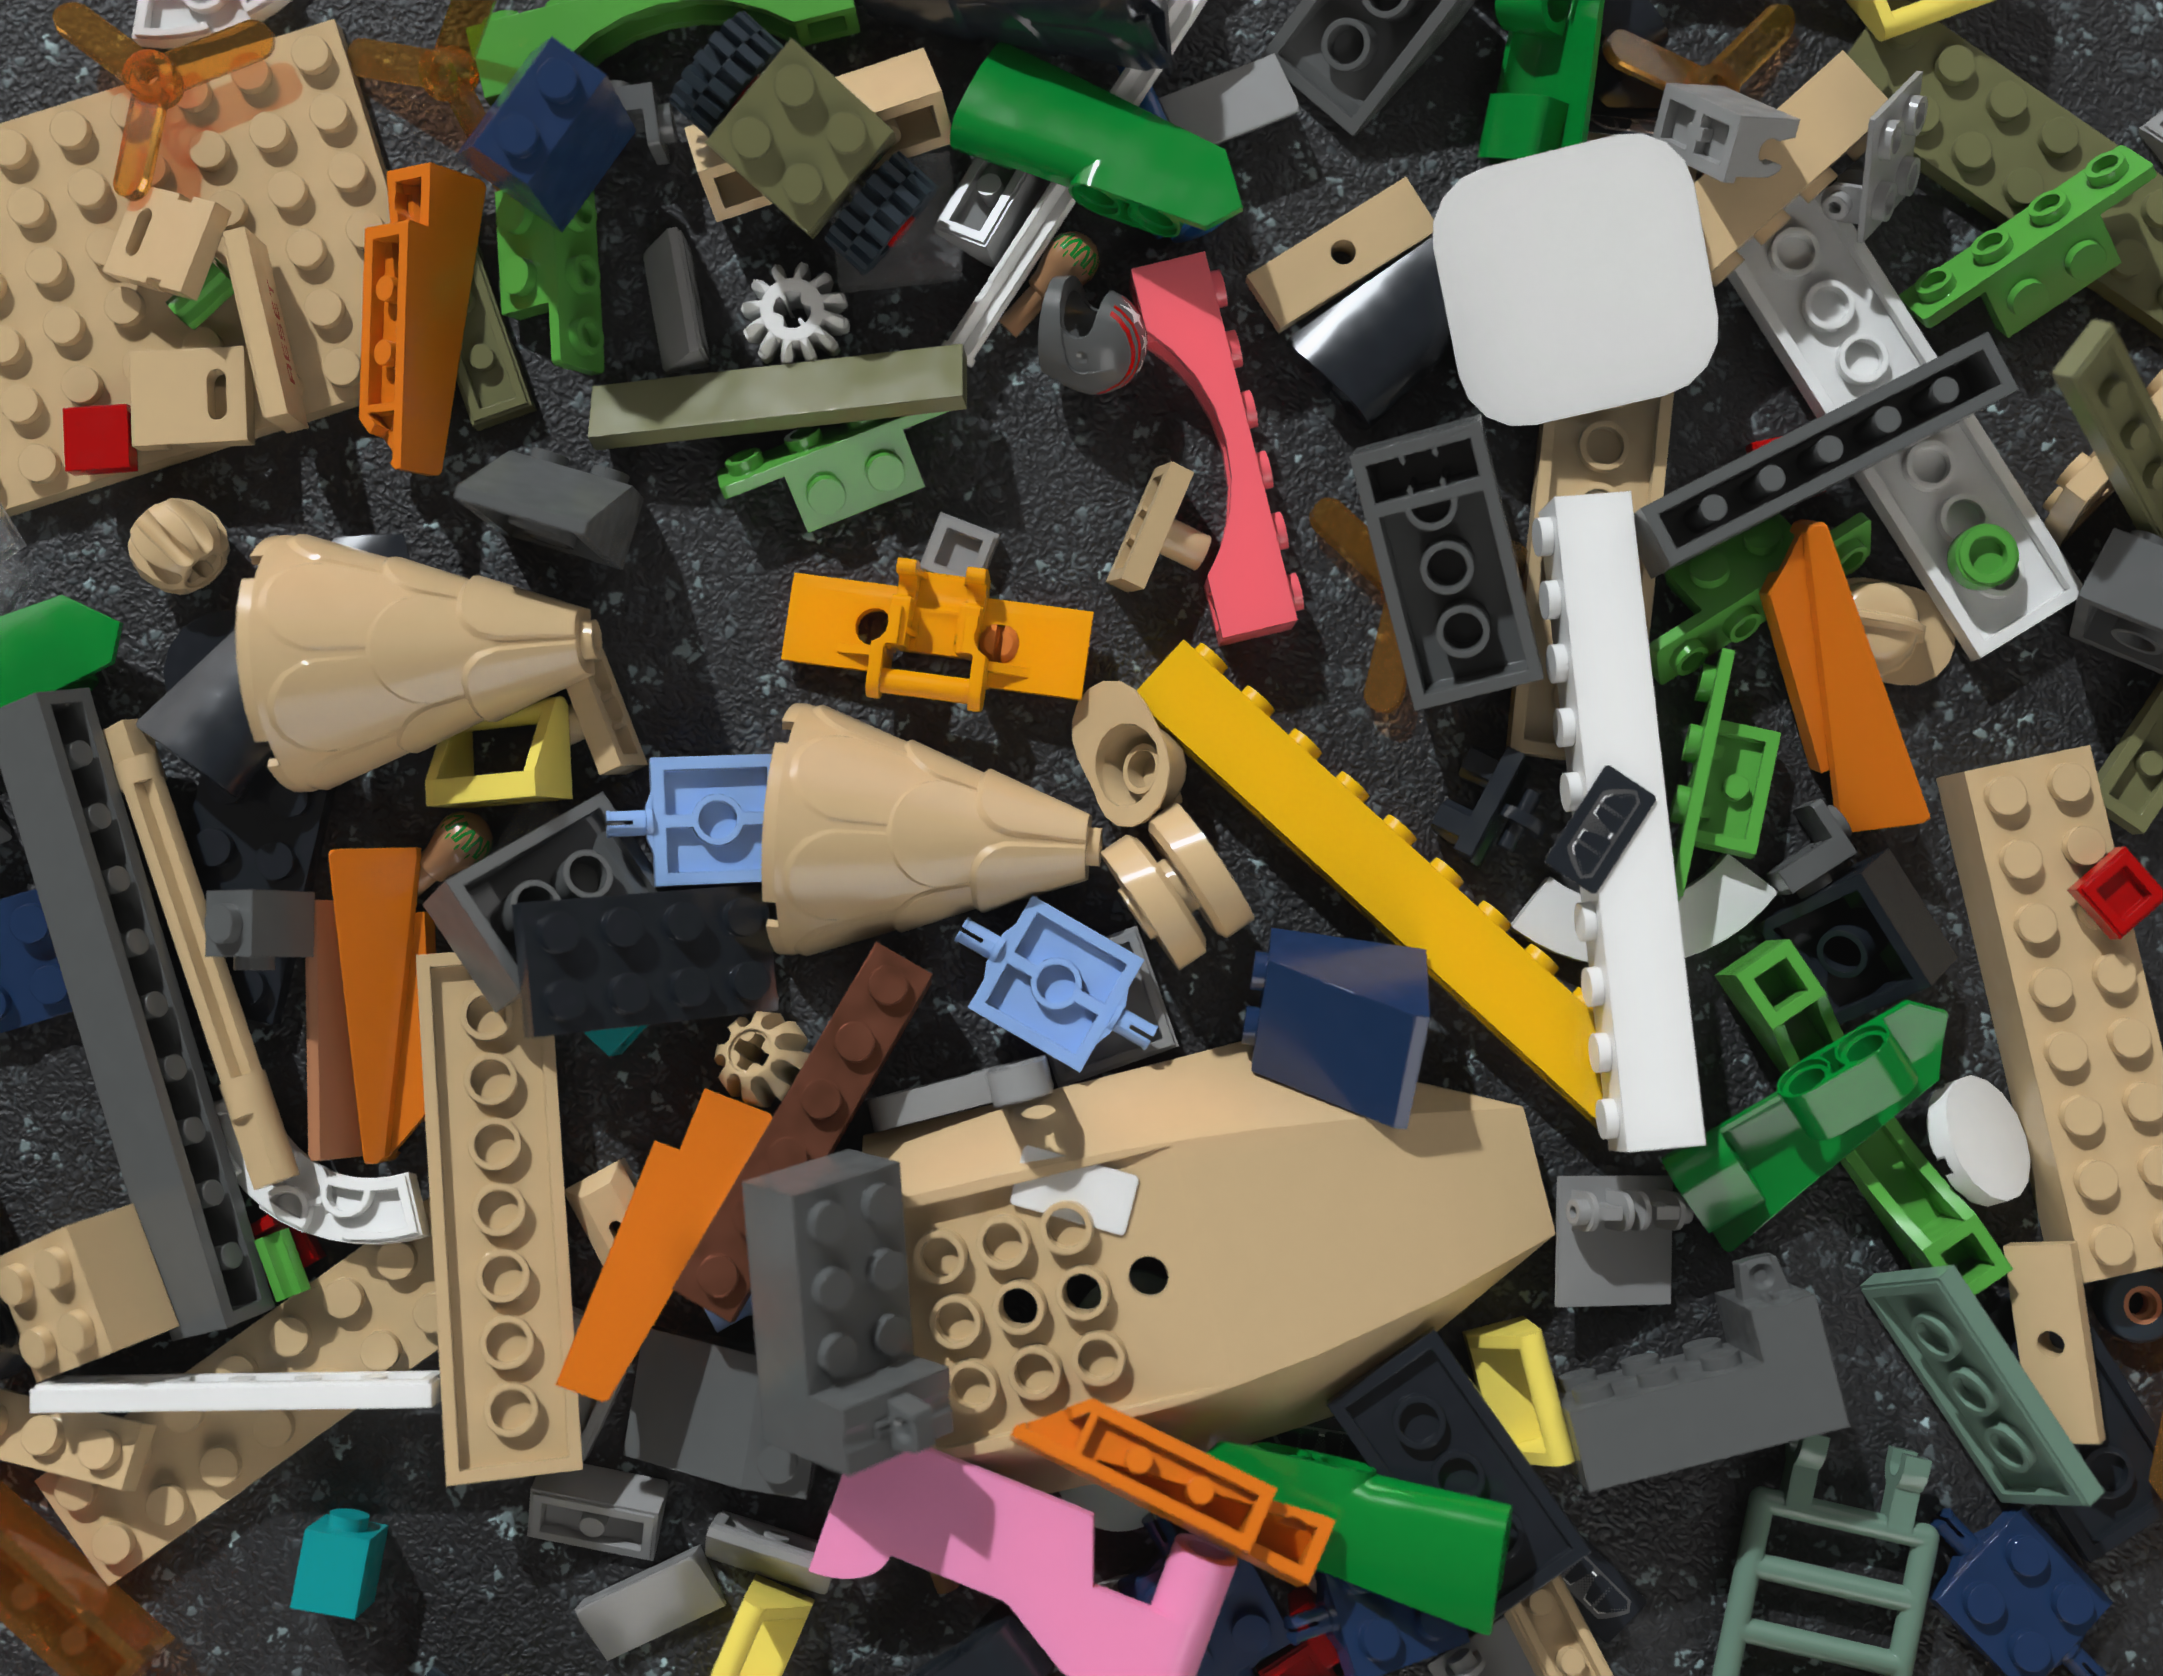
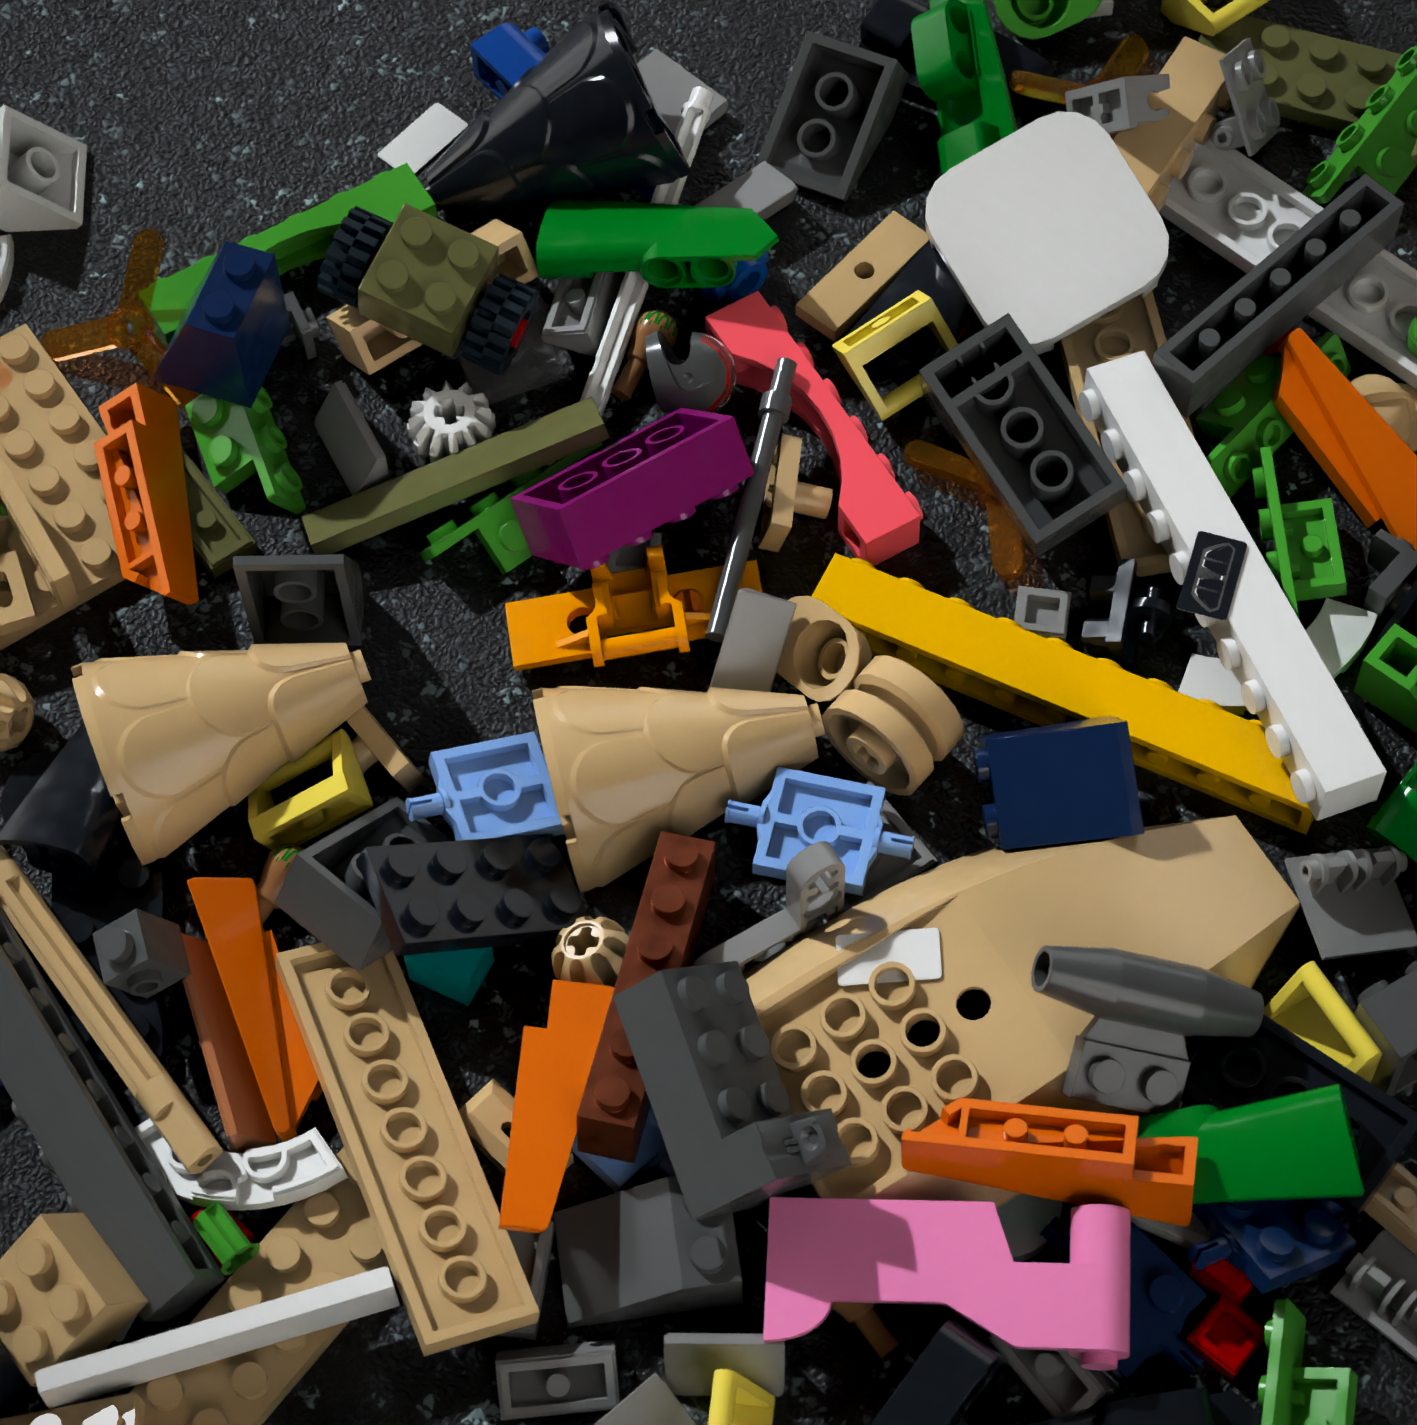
camera: 10 degrees left, 25 degrees down
(973, 488) = (633, 488): none -> magenta brick
(1053, 727) = (753, 641): none -> light grey slope
(1171, 429) = (774, 412): none -> dark grey bar
(1318, 1366) = (1141, 1010): none -> dark grey plate
(1335, 365) = (882, 334): none -> light yellow tile
(1398, 771) = (1043, 611): none -> light grey tile

